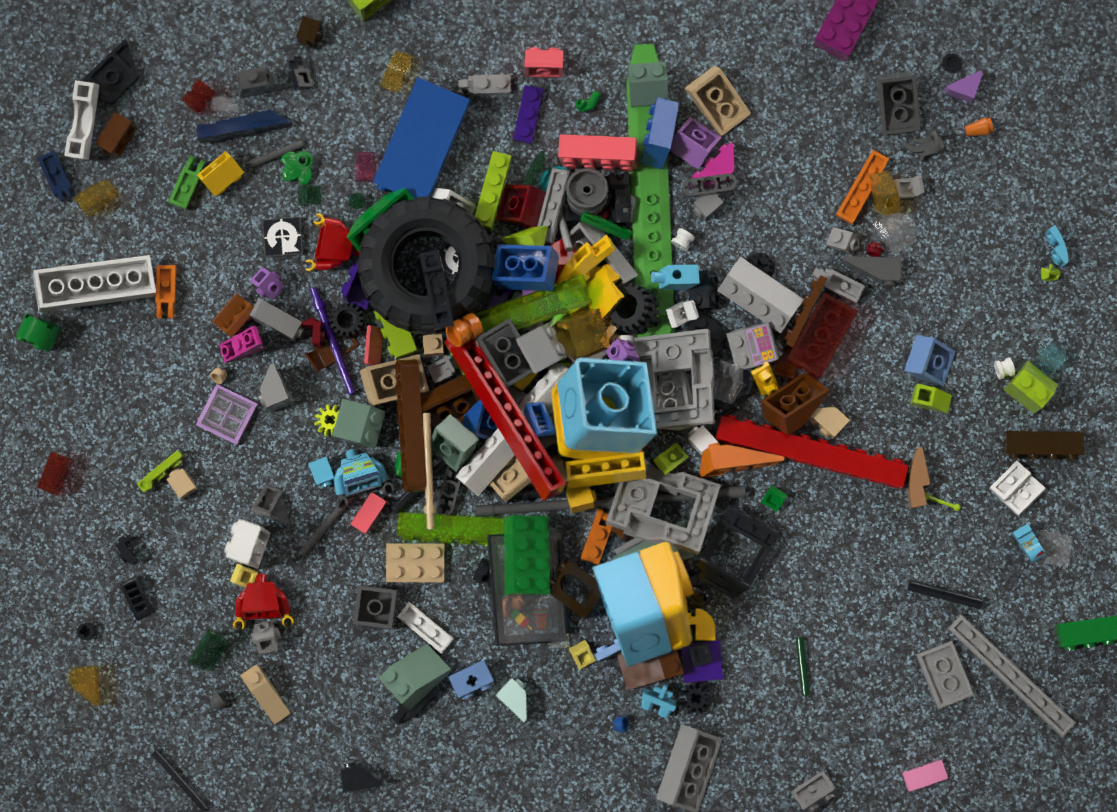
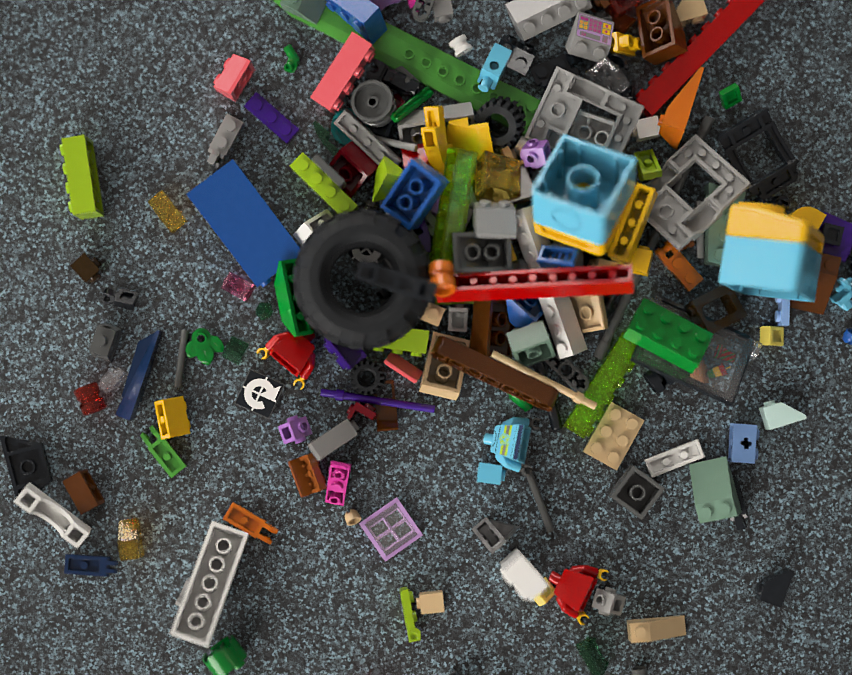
camera: 65 degrees left, 5 degrees up
(274, 390) = (395, 476): light grey slope -> none
(323, 420) = (443, 437): neon yellow gear -> none
(358, 423) = (466, 417): sand green slope -> none
(369, 513) = (547, 452): coral slope -> none
(505, 187) = (329, 171): none -> dark grey tile
(682, 313) = (525, 82): white bracket -> none

